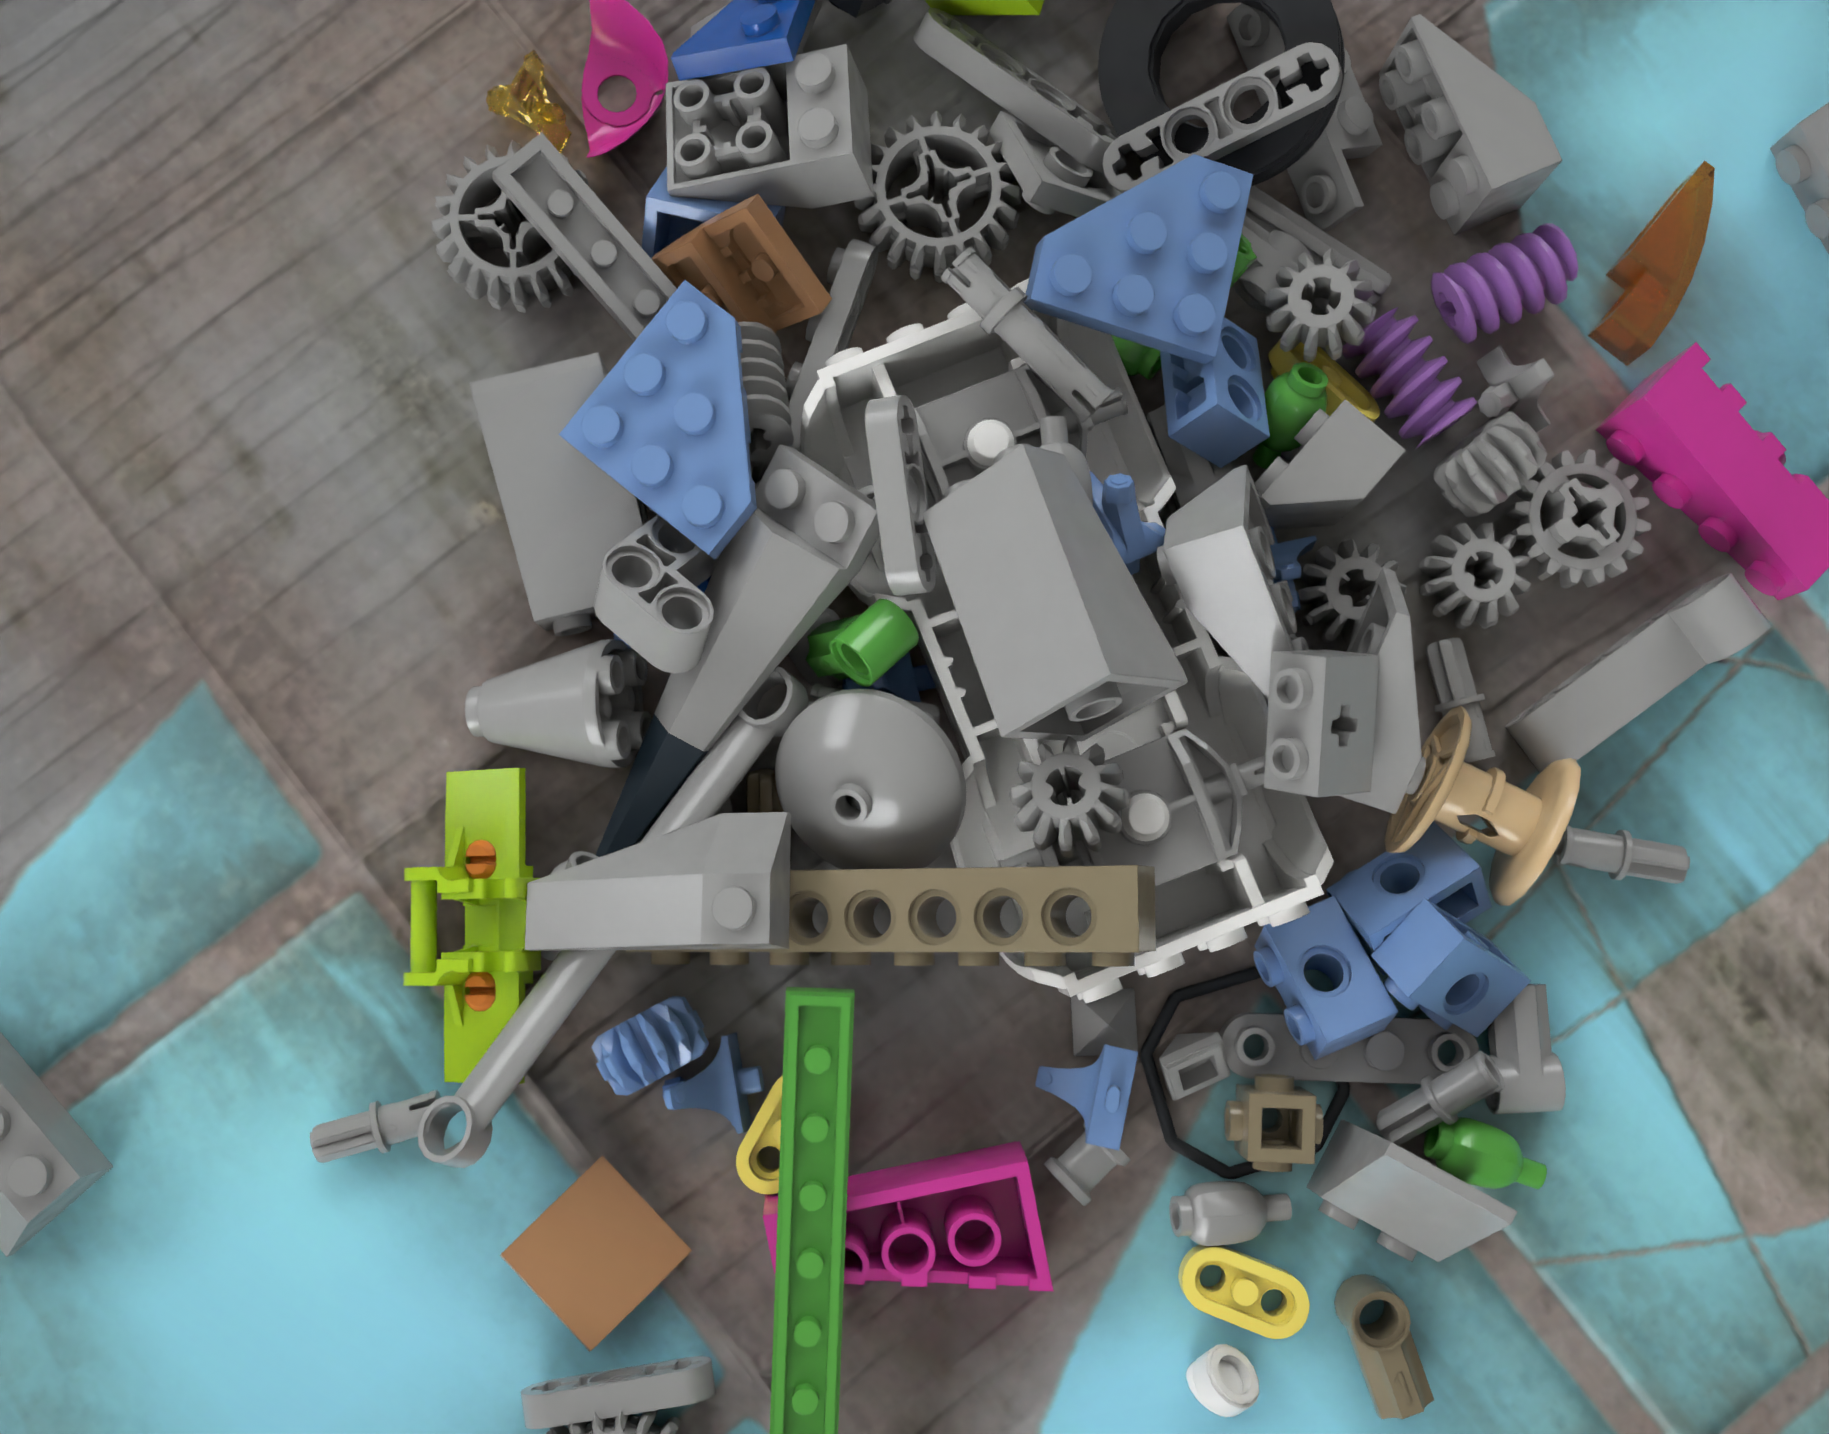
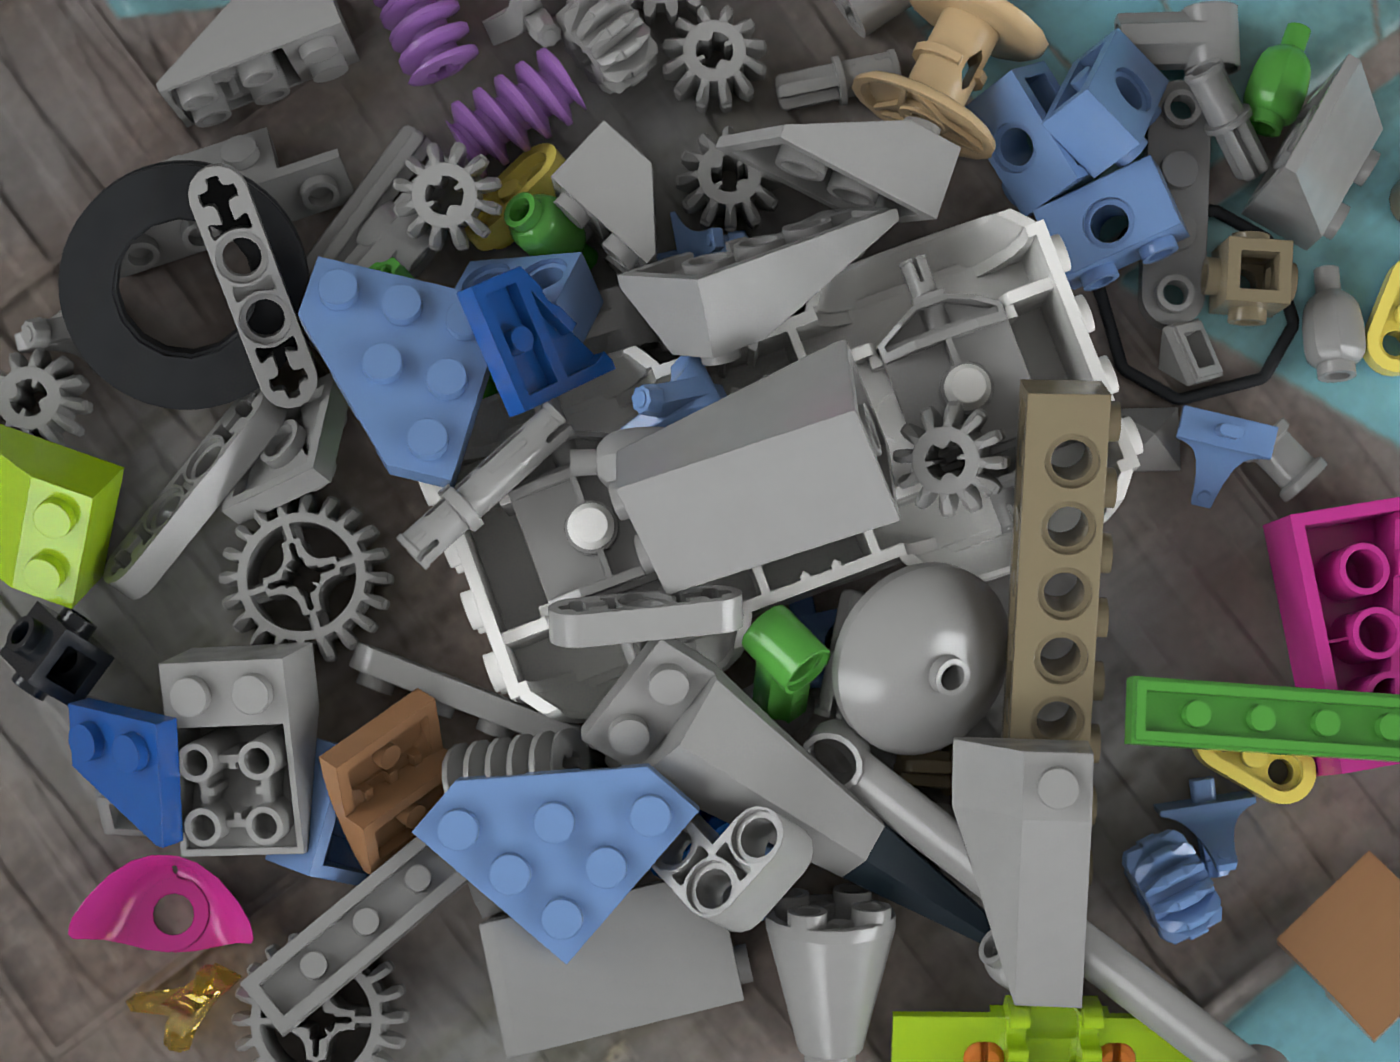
camera: 80 degrees left, 0 degrees up
(1175, 374) = (527, 341): none -> blue wing
(1321, 722) = (880, 214): light grey brick -> none

